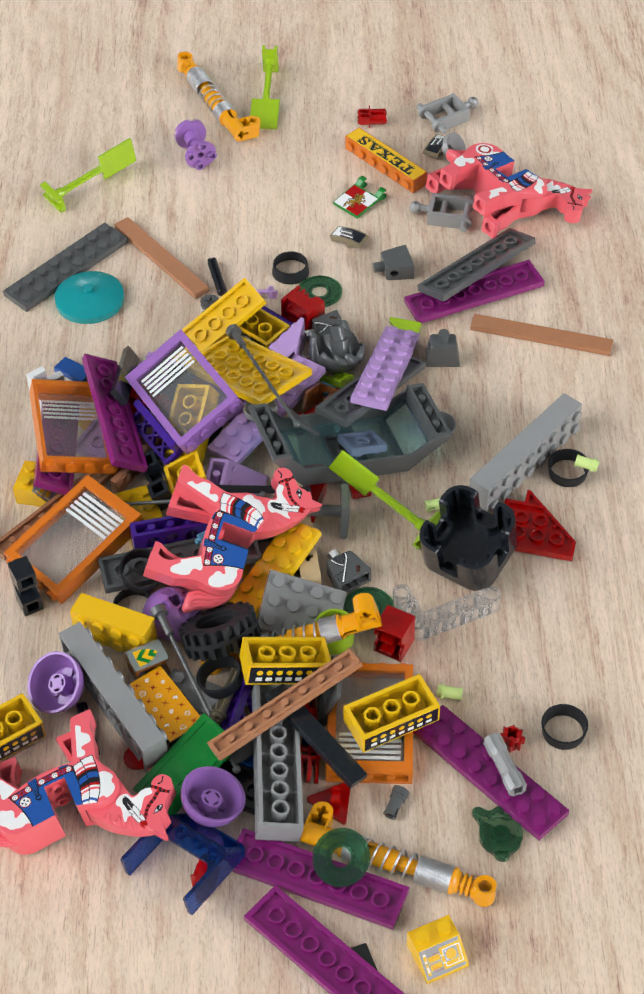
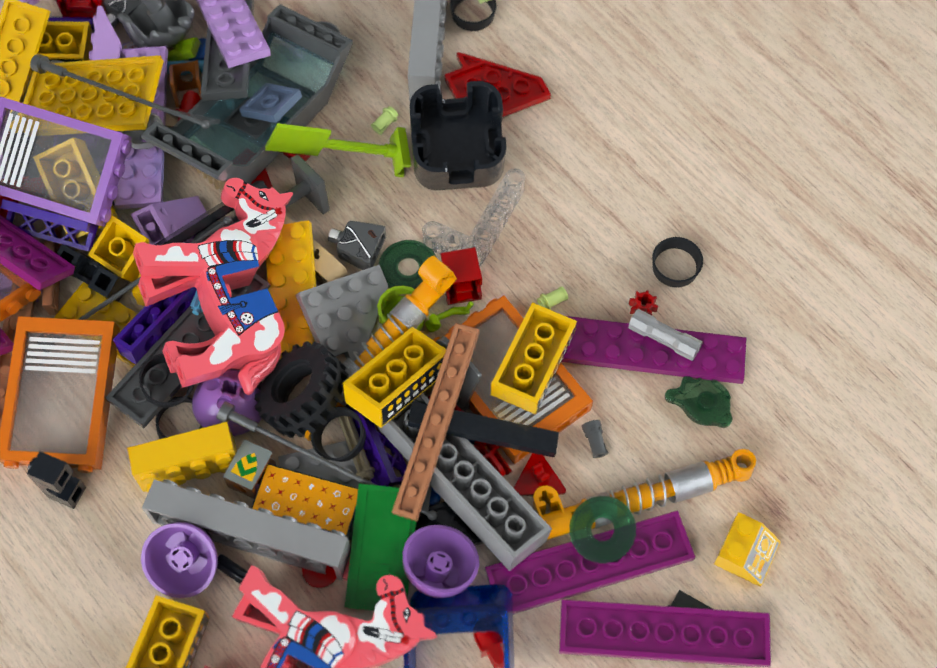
camera: 40 degrees left, 15 degrees up
(371, 655) = (434, 324): none -> lime piece

